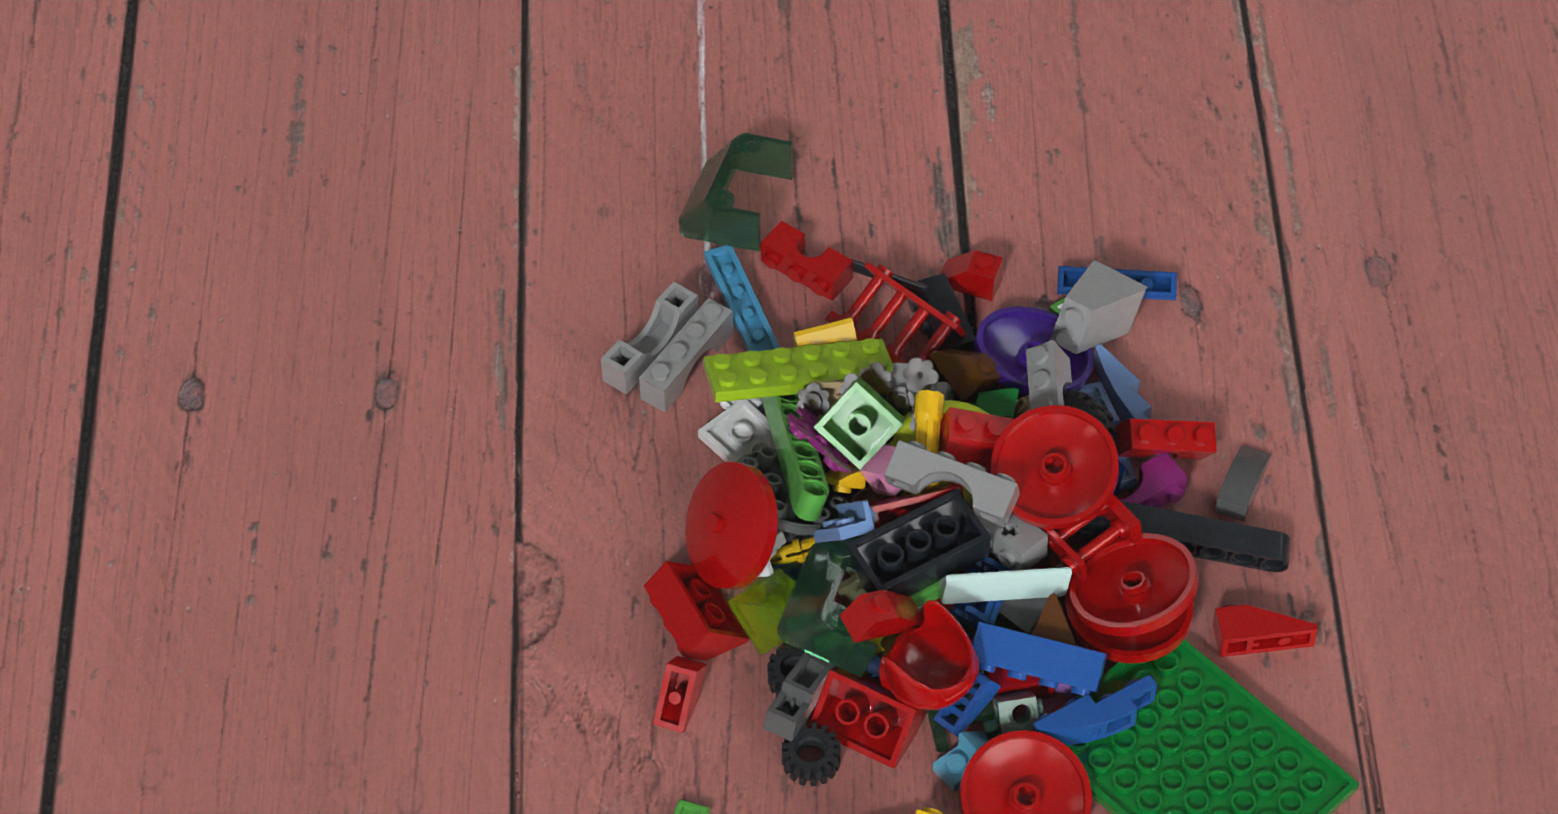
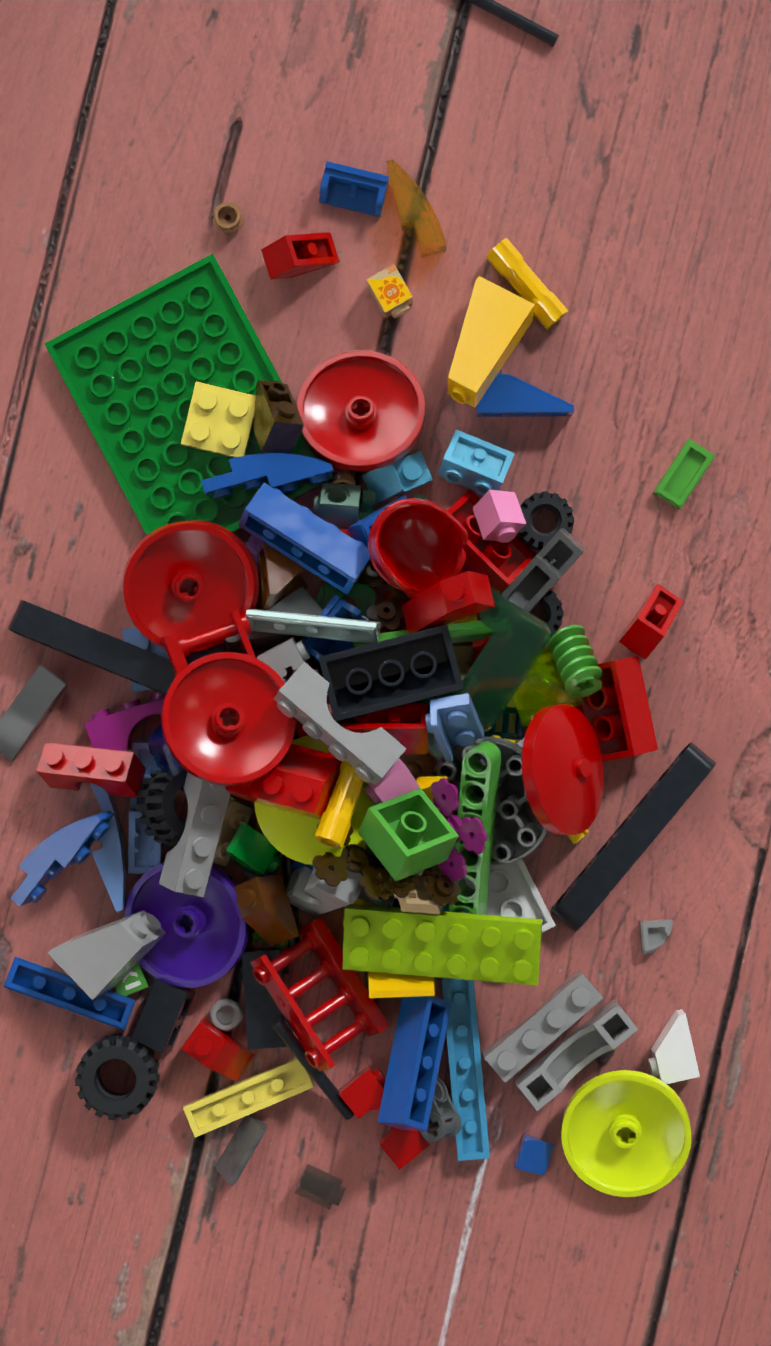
camera: 160 degrees left, 35 degrees up
(560, 363) = (674, 1052): none -> white slope
(588, 291) = (626, 1133): none -> neon yellow dish
(603, 452) = (654, 934): none -> light grey tile
(645, 518) = (633, 837): none -> black beam
(665, 266) = (533, 1155): none -> blue slope
(710, 207) = (480, 1204): clear green windscreen -> none
(746, 629) = (575, 661): none -> bright green piece
(765, 271) = (442, 1110): none -> dark grey piece
(792, 285) = (414, 1063): none -> blue brick
(845, 200) = (320, 1187): none -> clear smoke brick
(856, 736) = (499, 516): none -> bright pink brick
(893, 787) = (475, 463): none -> medium azure bracket
(923, 213) = (240, 1148): none -> flat silver slope
(936, 246) = (247, 1097): none -> light yellow plate
(973, 304) = (226, 1014): none -> light grey tile
(1029, 282) = (163, 1016): none -> black hinge
(1056, 216) = (101, 1098): none -> black tyre
(1106, 762) = (276, 418): none -> dark brown slope
(1160, 754) = (219, 420): none -> light yellow plate
(1166, 374) = (57, 852): none -> slope
(1257, 630) = (86, 538): red slope -> none

